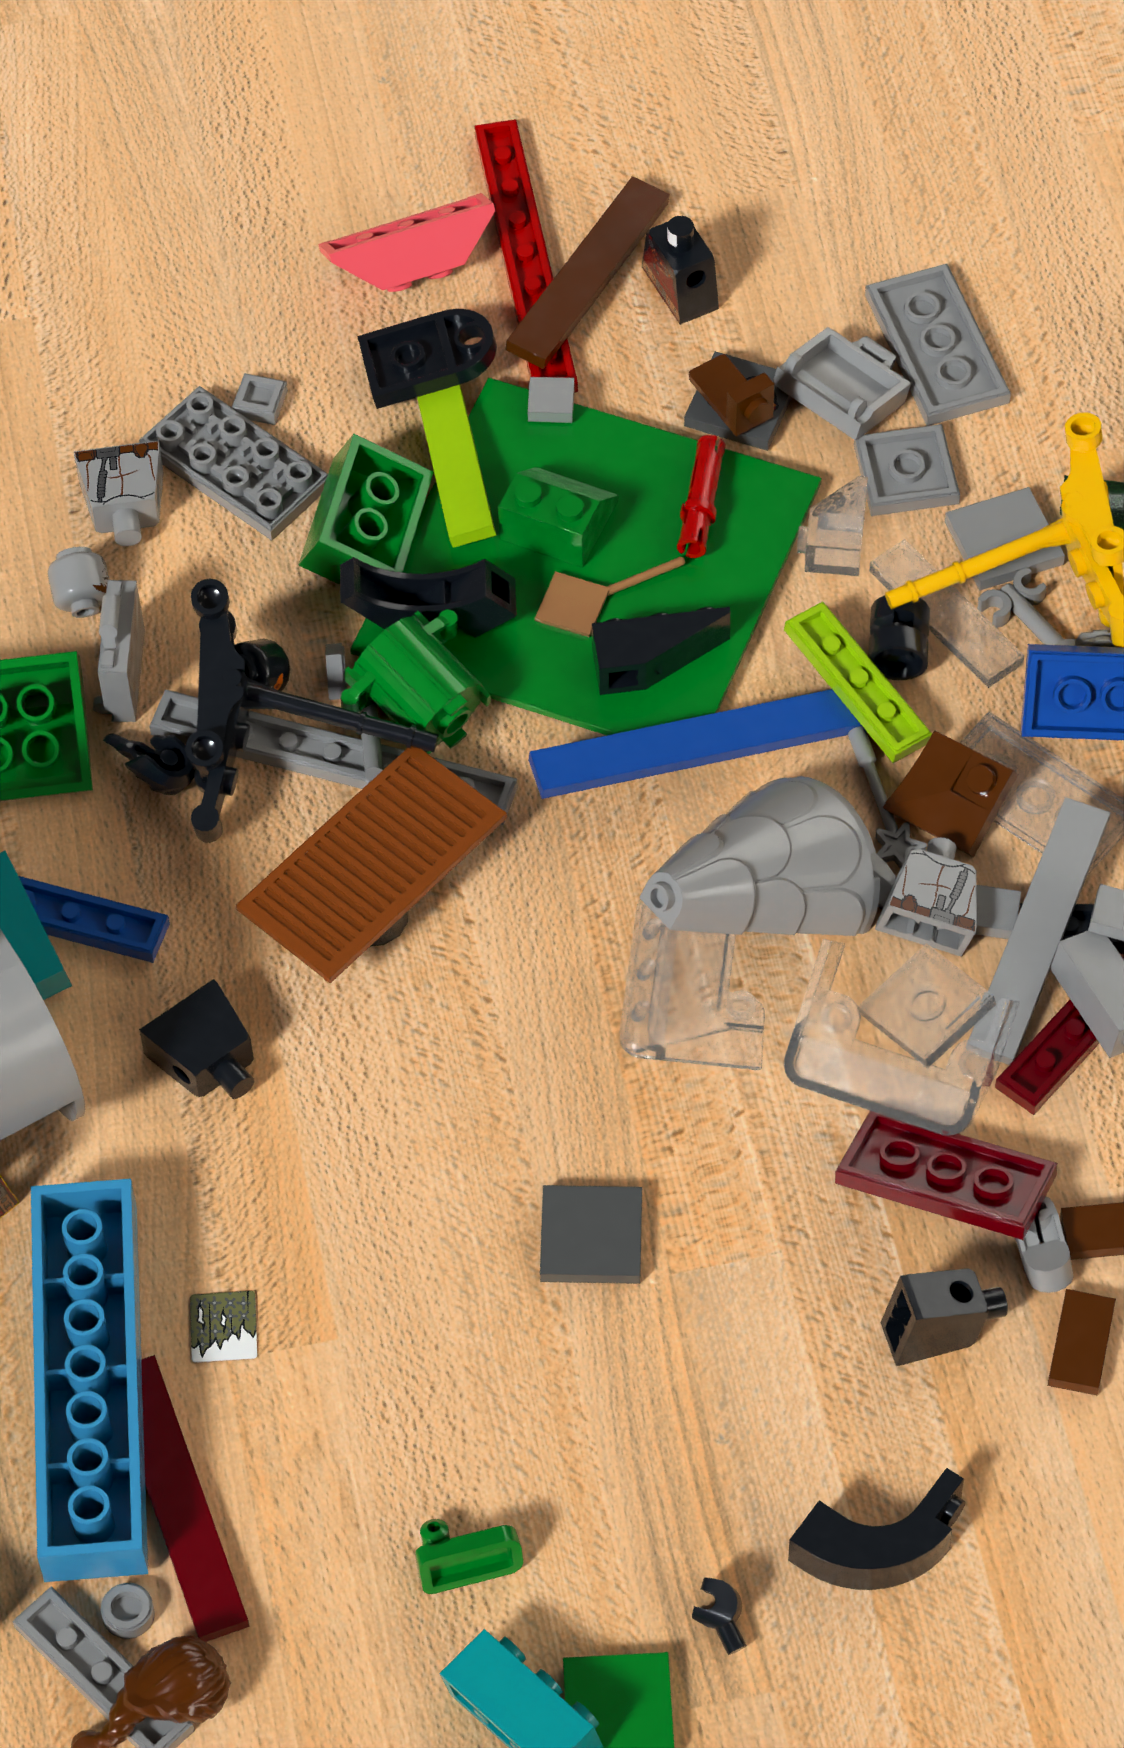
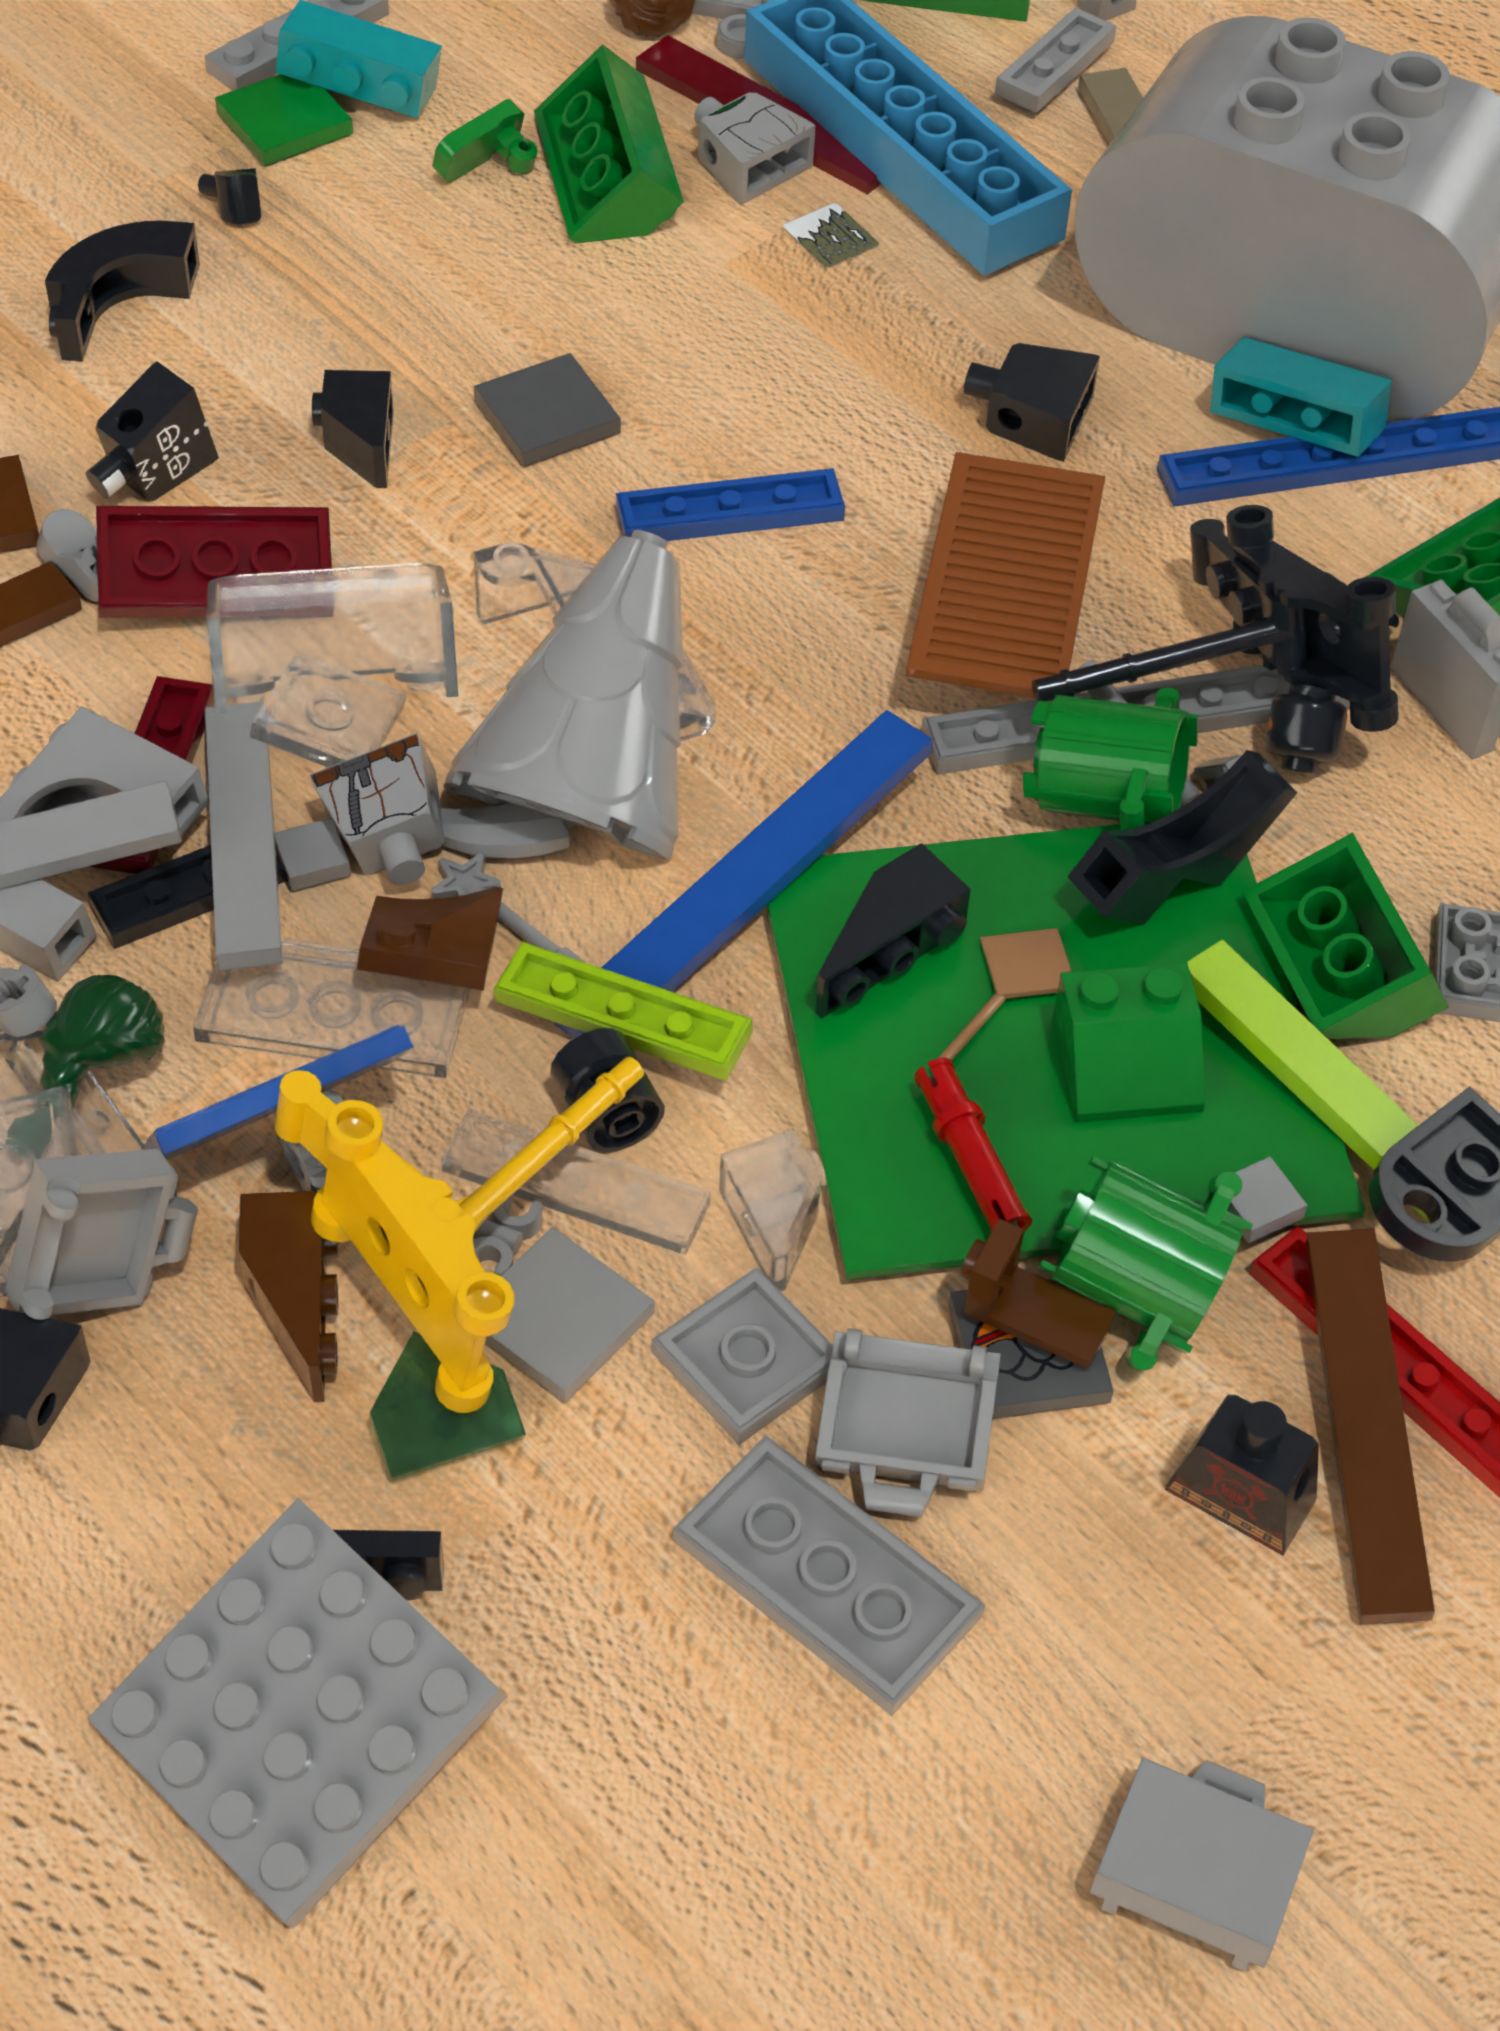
camera: 145 degrees right, 5 degrees down
(230, 1438) = (752, 144): none -> light grey torso
(362, 1490) = (607, 152): none -> green slope
(509, 1071) = (732, 505): none -> blue tile
(651, 378) = (1148, 1253): none -> green container
(756, 1275) = (357, 420): none -> black slope
(839, 131) = (1204, 1858): none -> light grey piece

